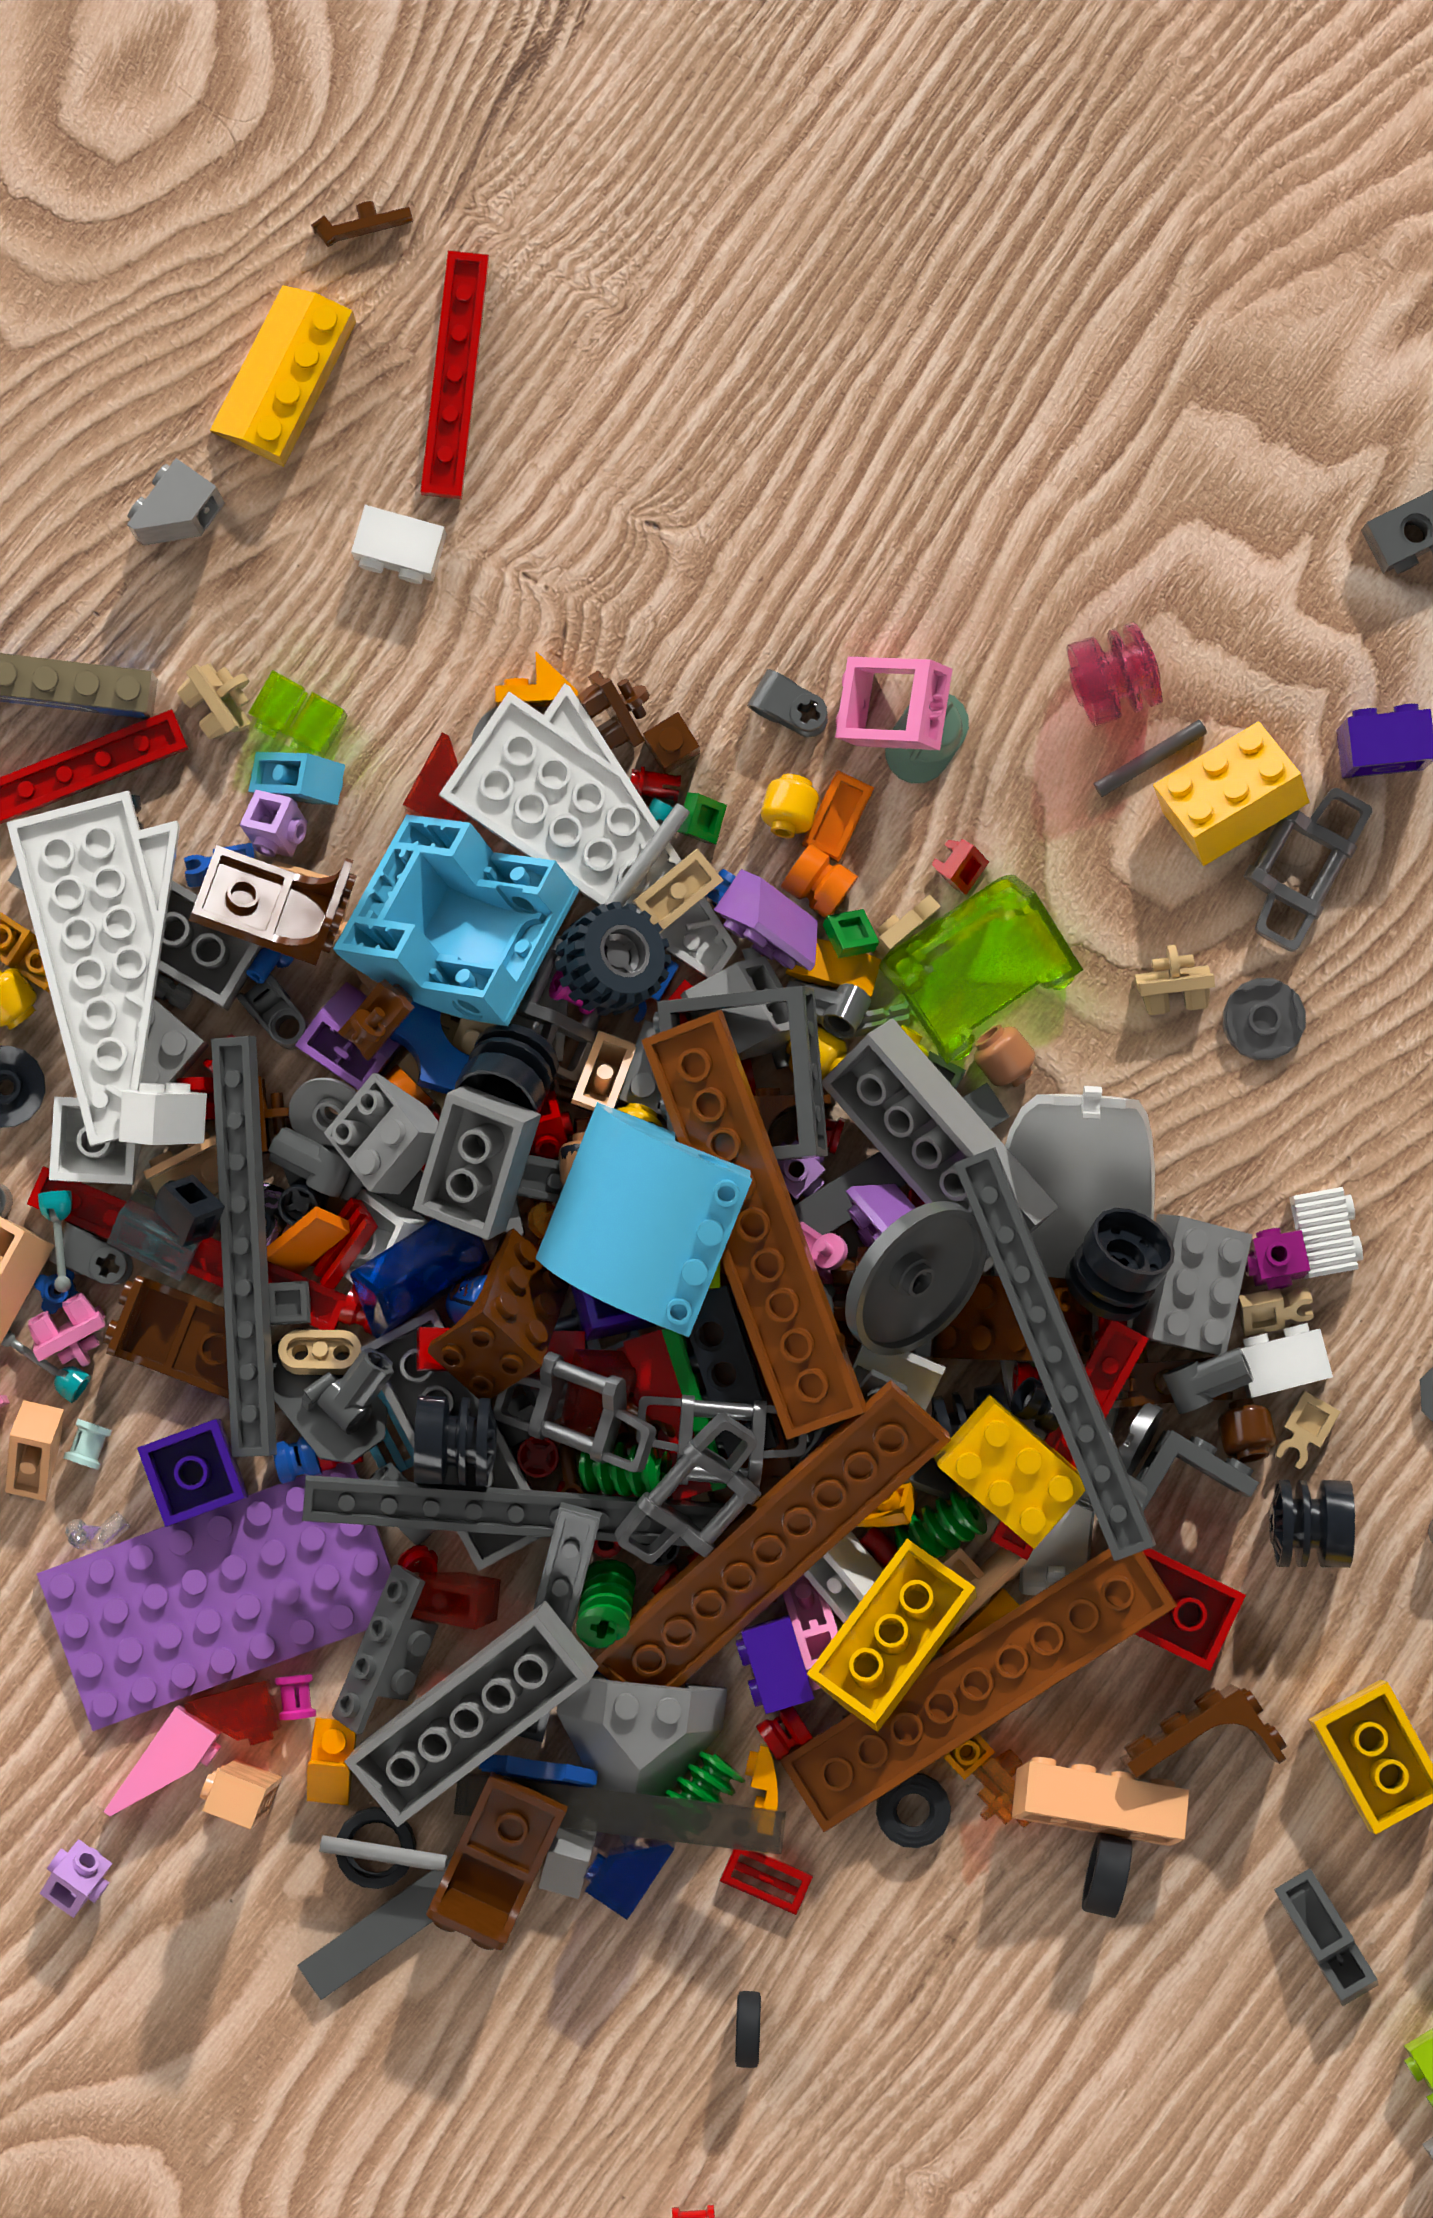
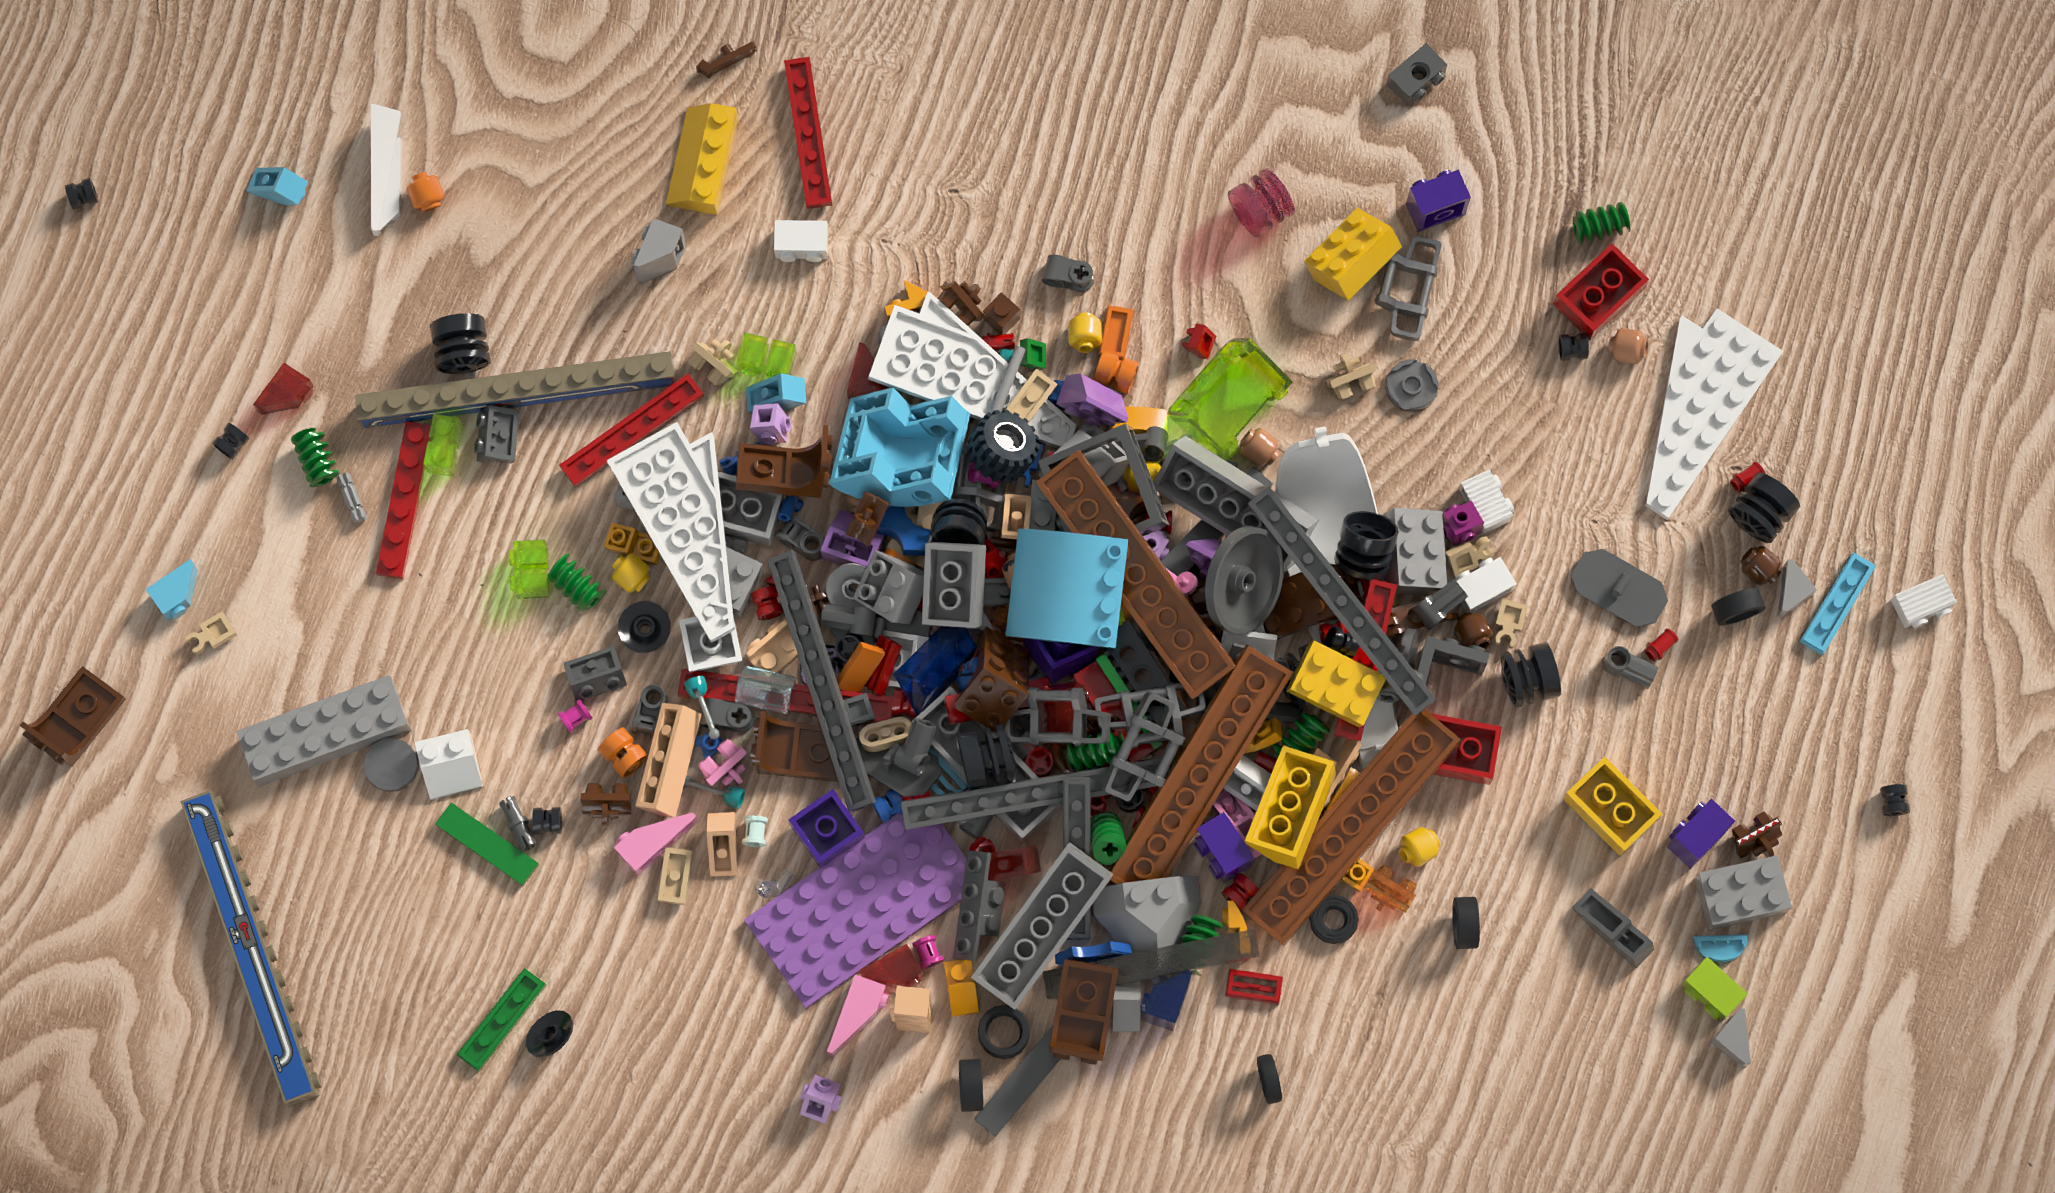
camera: 15 degrees left, 10 degrees down
(163, 1115) = (750, 611): white brick -> none
(189, 1209) = (781, 666): black brick -> none
(303, 1919) = (971, 1085): none -> black tyre
(383, 1853) = (1008, 1030): light grey bar -> none
(850, 933) = (1144, 397): green plate -> none
(896, 930) = (1172, 389): tan plate -> none
(923, 725) = (1153, 253): bright pink window -> none
(926, 765) = (1156, 272): sand green piece -> none
(1071, 1736) = (1419, 846): none -> yellow head
(1100, 1802) = (1449, 878): light nougat brick -> none
(1150, 758) = (1297, 249): dark grey bar -> none
(1213, 1709) = (1515, 799): reddish brown bracket -> none

